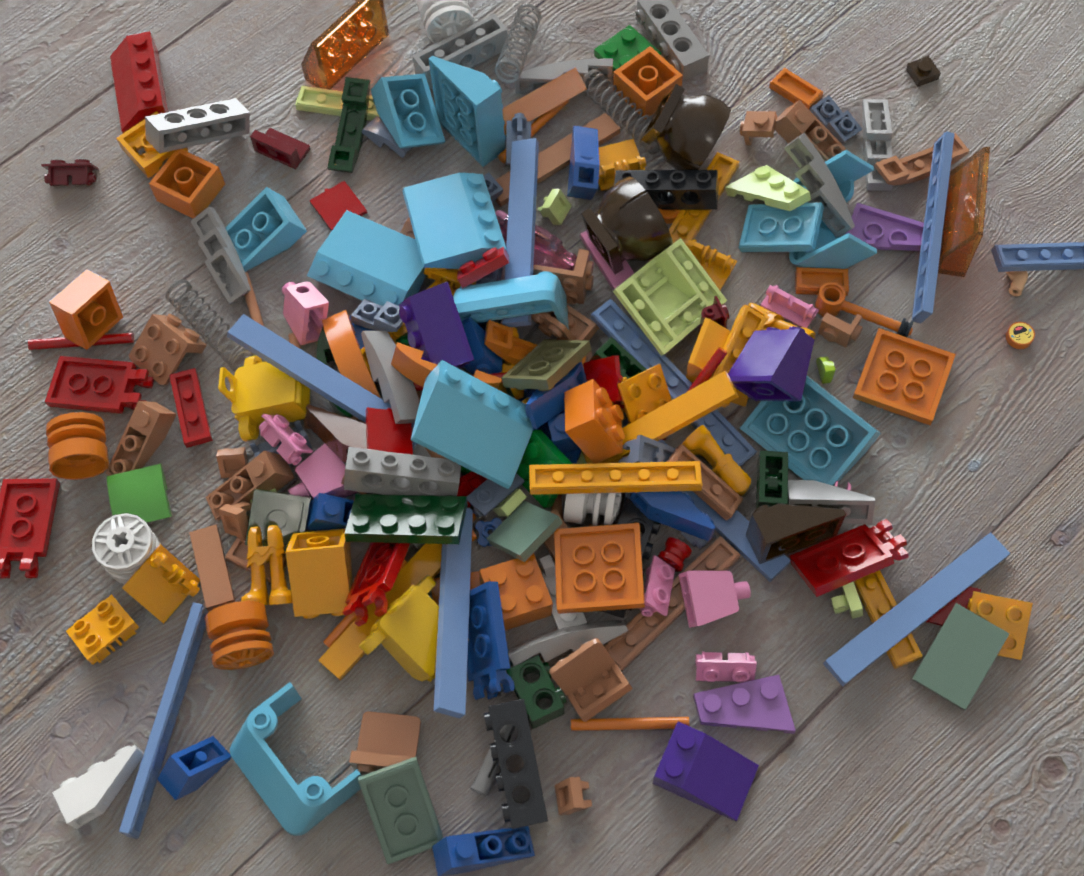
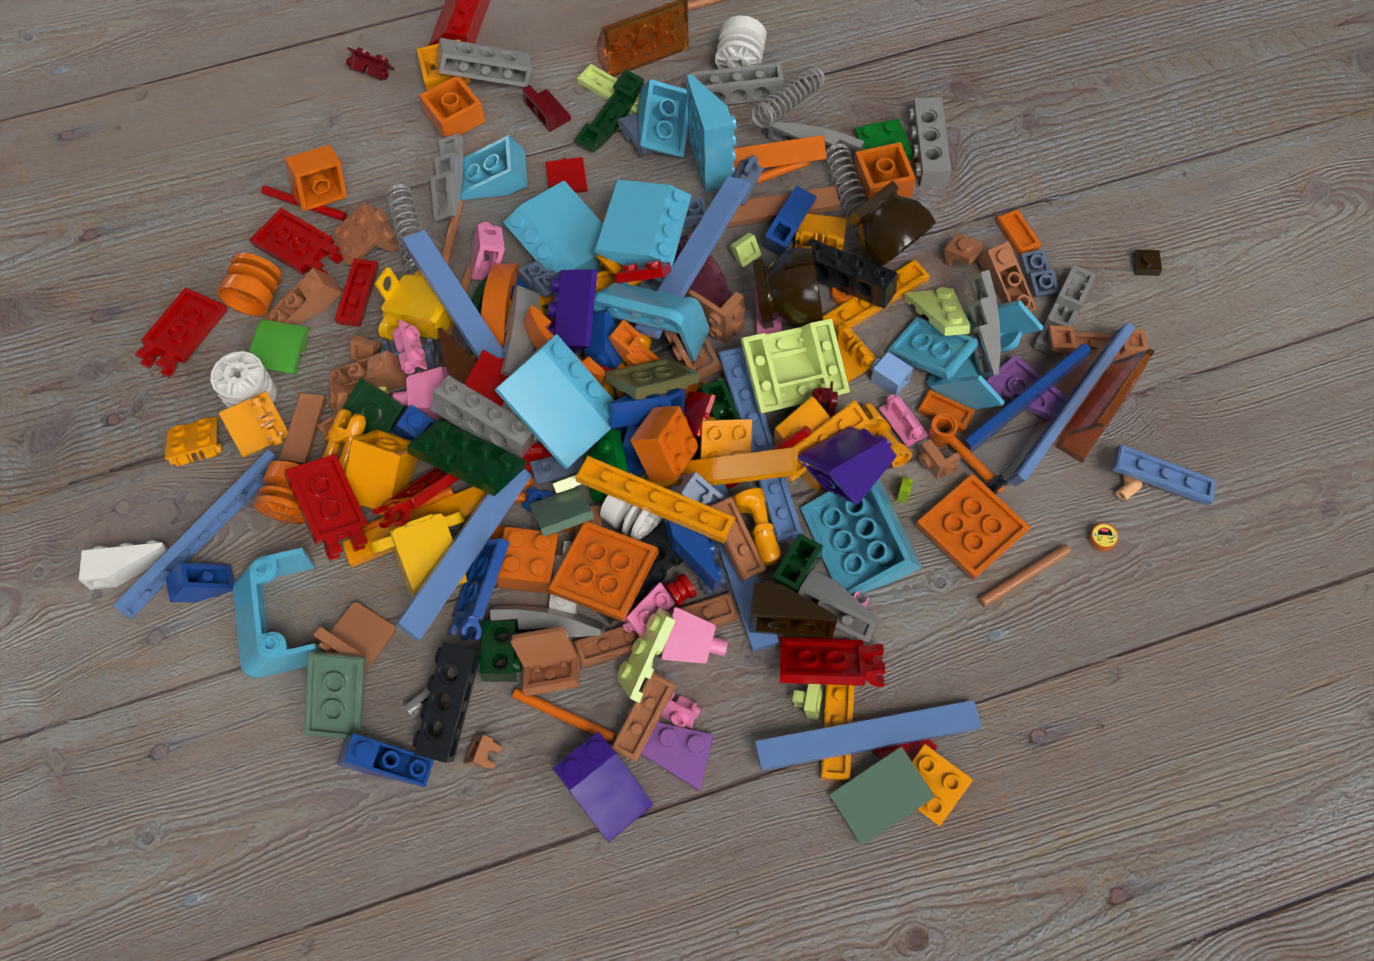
camera: 25 degrees right, 0 degrees up
(292, 628) = (328, 504): none -> red tile
(679, 636) = (643, 651): none -> yellowish green wing
(710, 687) = (644, 717): none -> nougat tile
(755, 267) = (891, 373): none -> light blue brick
(892, 236) = (1027, 397): none -> blue tile
(971, 400) = (1024, 575): none -> nougat bar

